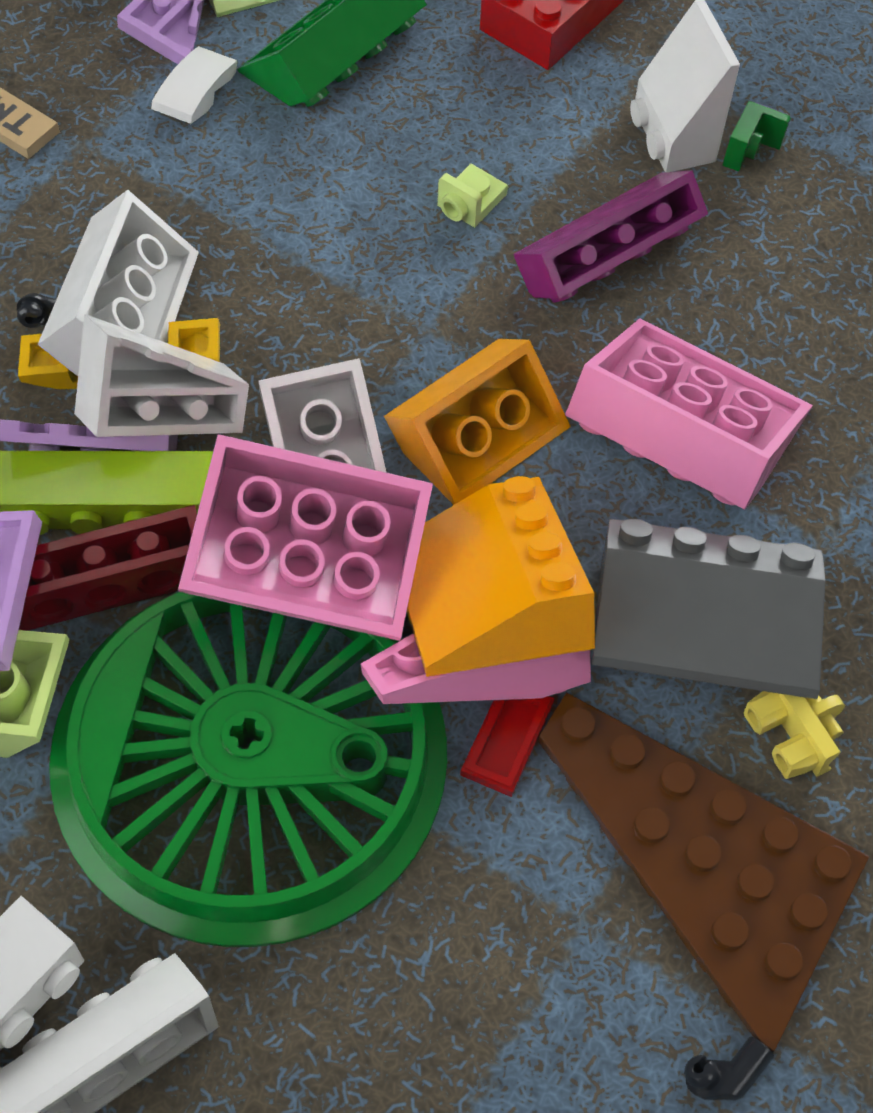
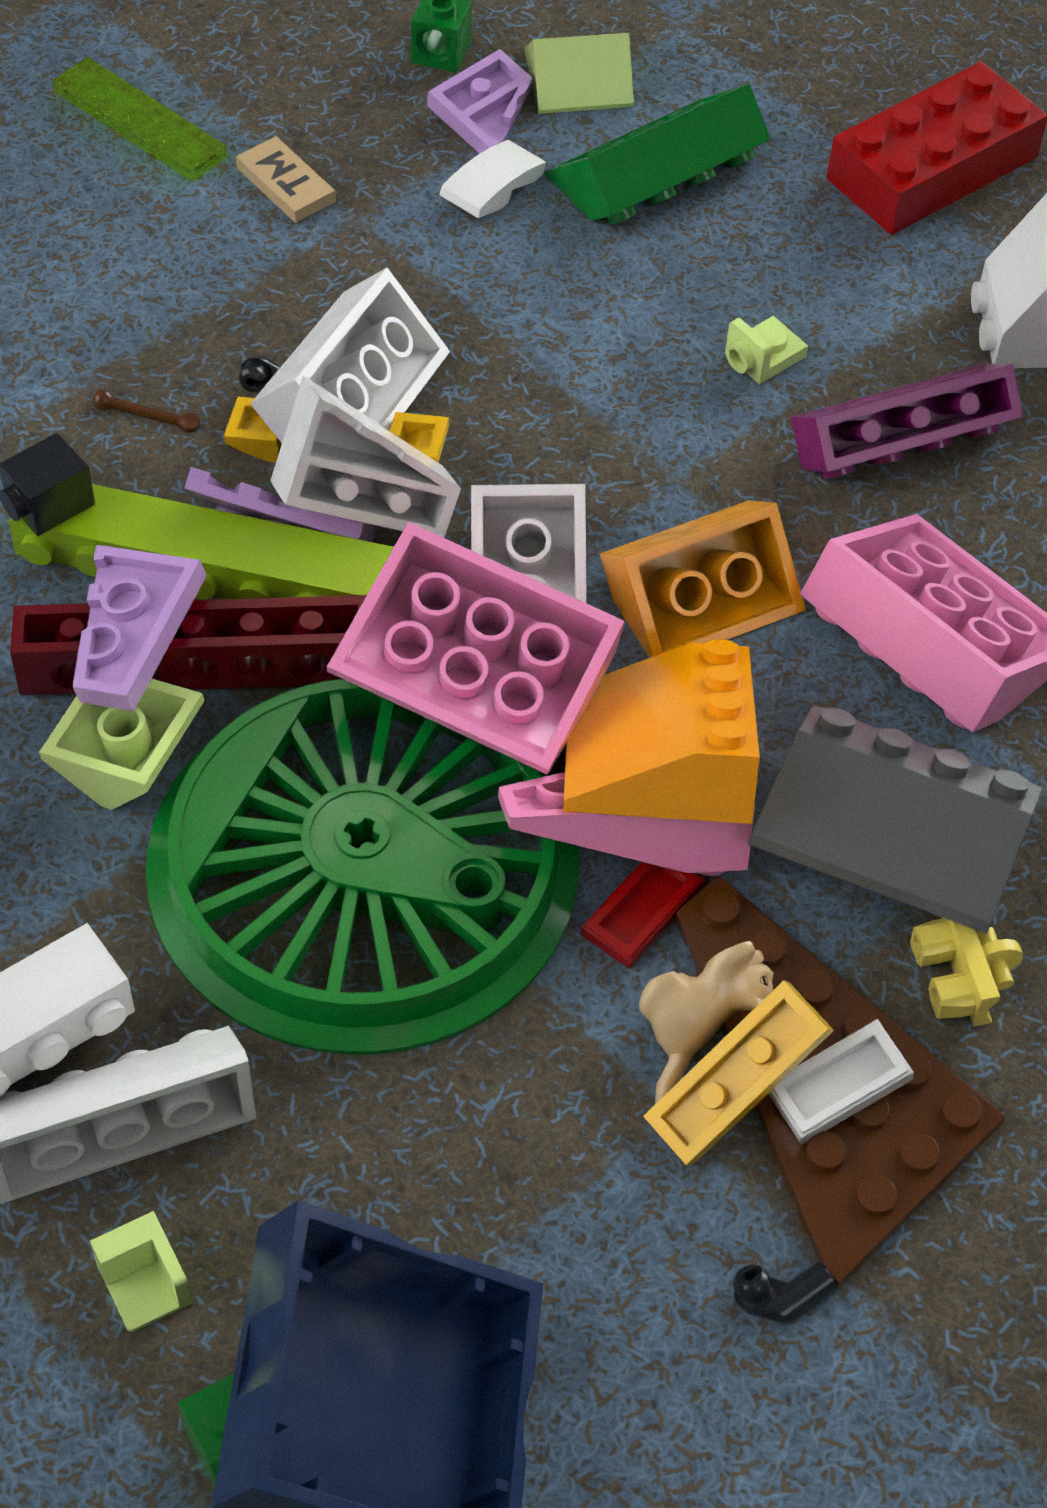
camera: 15 degrees right, 5 degrees down
(581, 828) = (692, 1009): none -> tan animal
(640, 881) = (738, 1073): none -> yellow plate
(726, 865) = (840, 1081): none -> white tile

